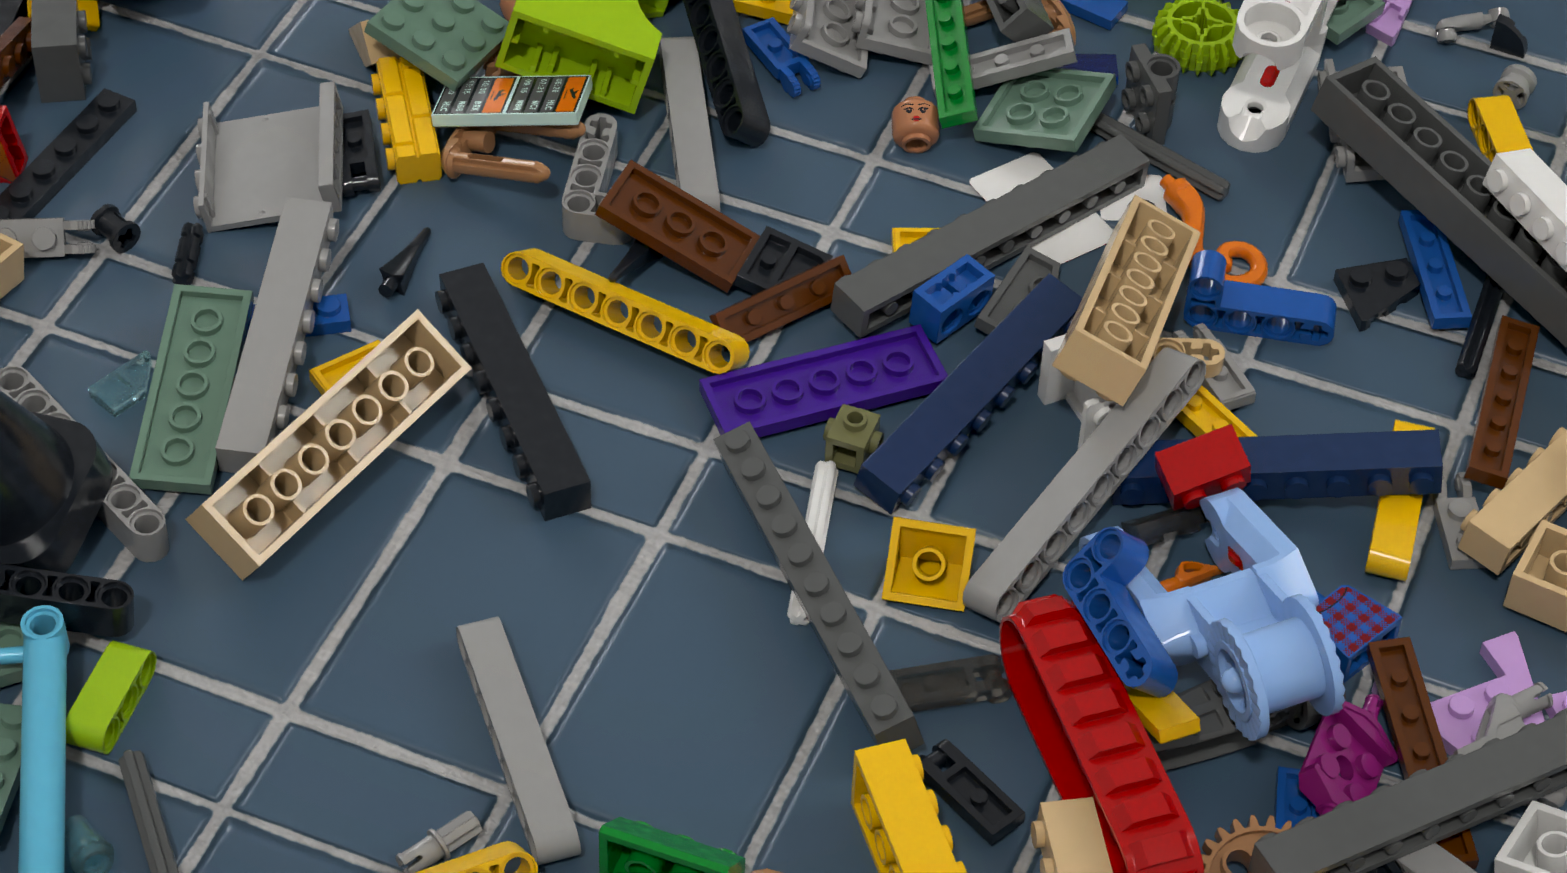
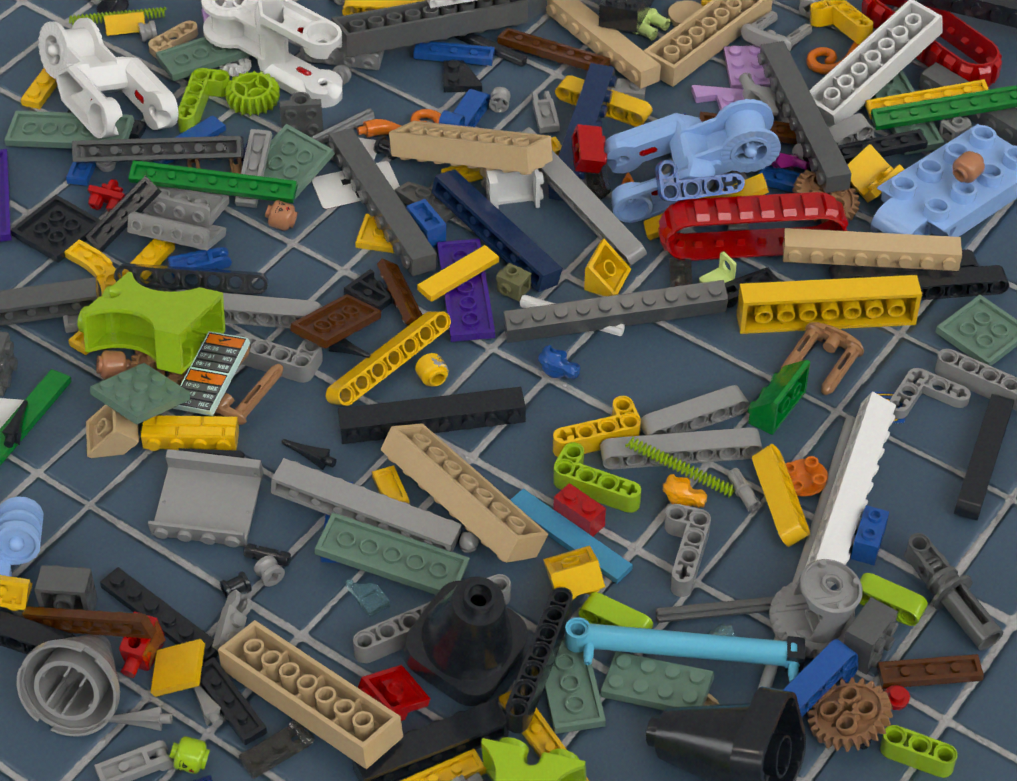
camera: 75 degrees left, 0 degrees up
(148, 257) = (269, 571): none -> light grey wheel
(191, 620) = (576, 571): none -> yellow slope
(281, 781) = (694, 528): none -> light grey beam
(289, 615) = (571, 536): none -> dark azure tile
(333, 610) = (580, 509): none -> red brick
(404, 758) = (680, 492): none -> light orange hair
(418, 587) = (597, 484): none -> lime beam
(444, 799) = (682, 467): none -> lime piece
(545, 647) = (623, 423): none -> yellow beam
(606, 747) = (696, 412): none -> light grey beam
(612, 368) = (431, 369): none -> yellow head
(672, 538) = (556, 365): none -> blue hair
(845, 360) = (458, 273): none -> yellow tile
(978, 741) = (722, 272): none -> yellowish green bracket
(1301, 132) = (344, 72): none -> light grey plate
(1331, 349) = (502, 104): none -> light grey wheel
(1335, 415) = (545, 113): none -> light grey hinge

